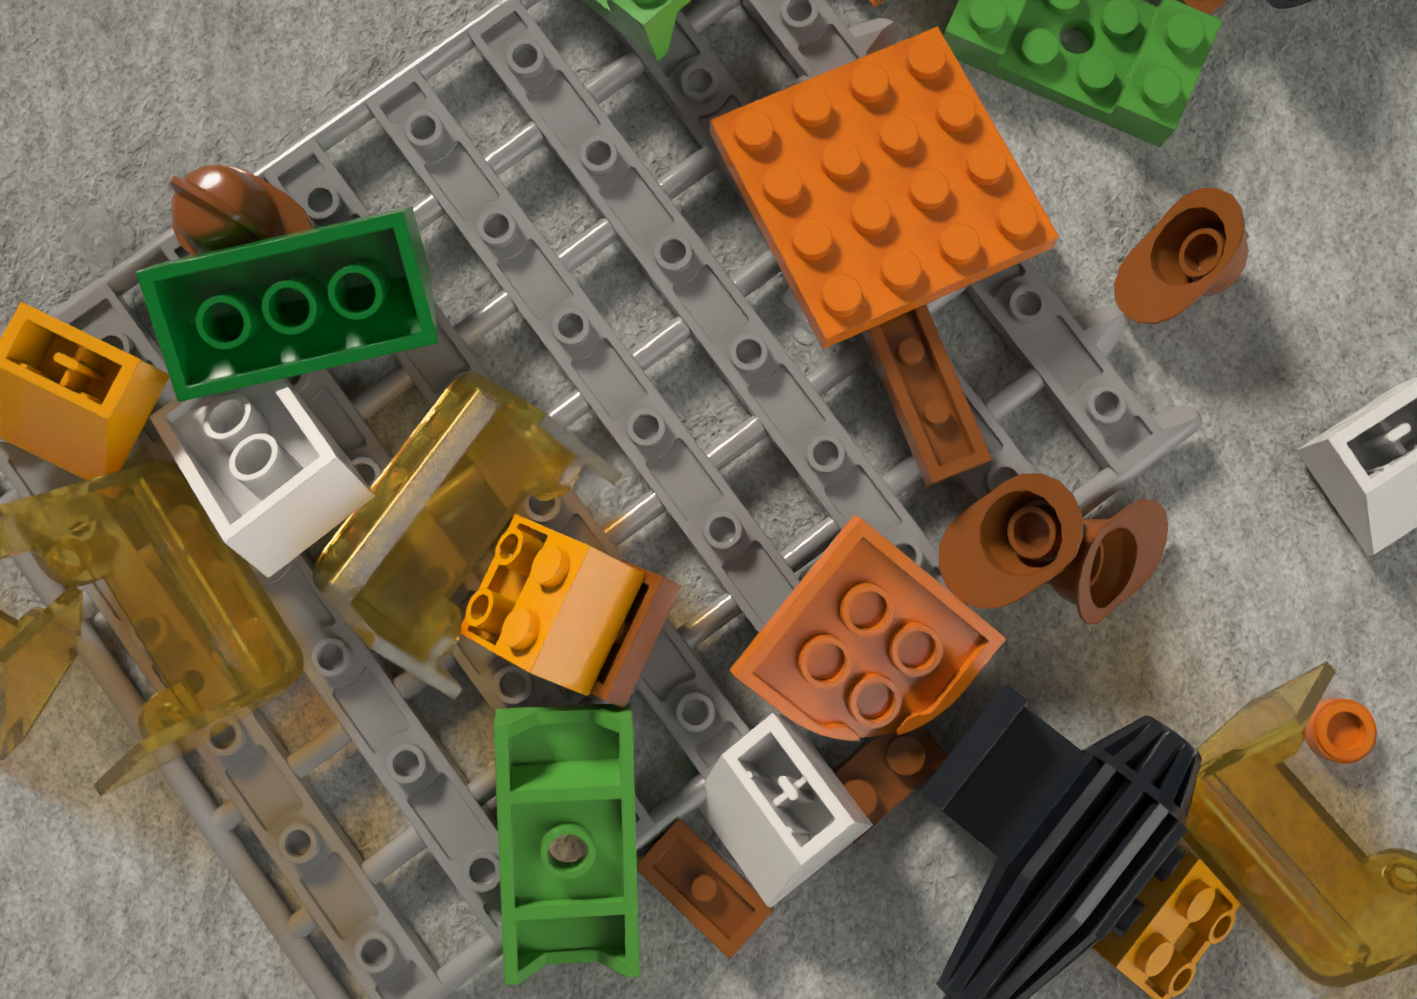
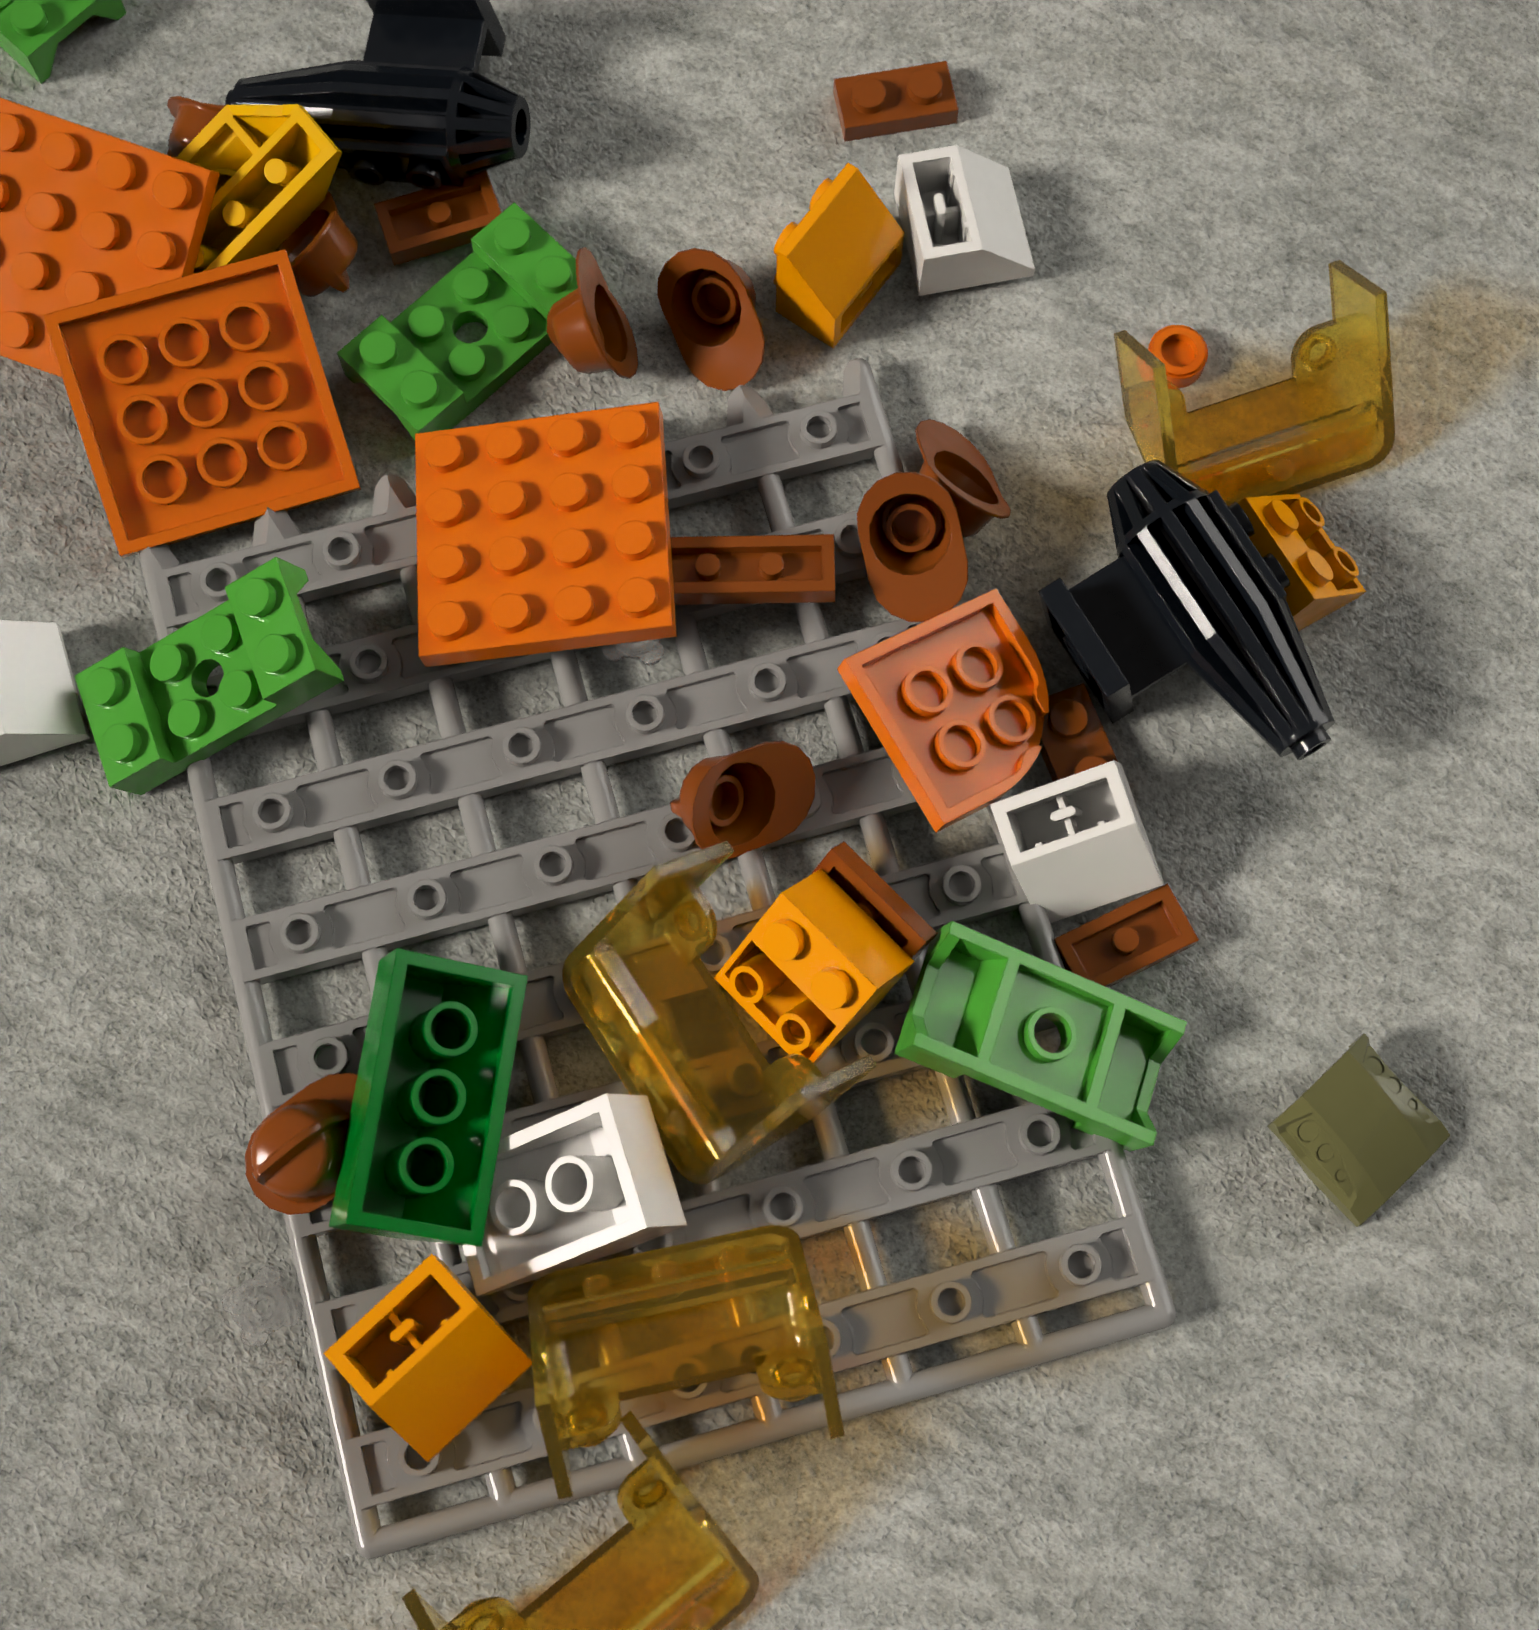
camera: 70 degrees left, 10 degrees down
(687, 477) = (747, 796): none -> dark orange piece
(1126, 146) = (591, 325): none -> dark orange piece
(1299, 351) = (836, 257): none -> light orange slope

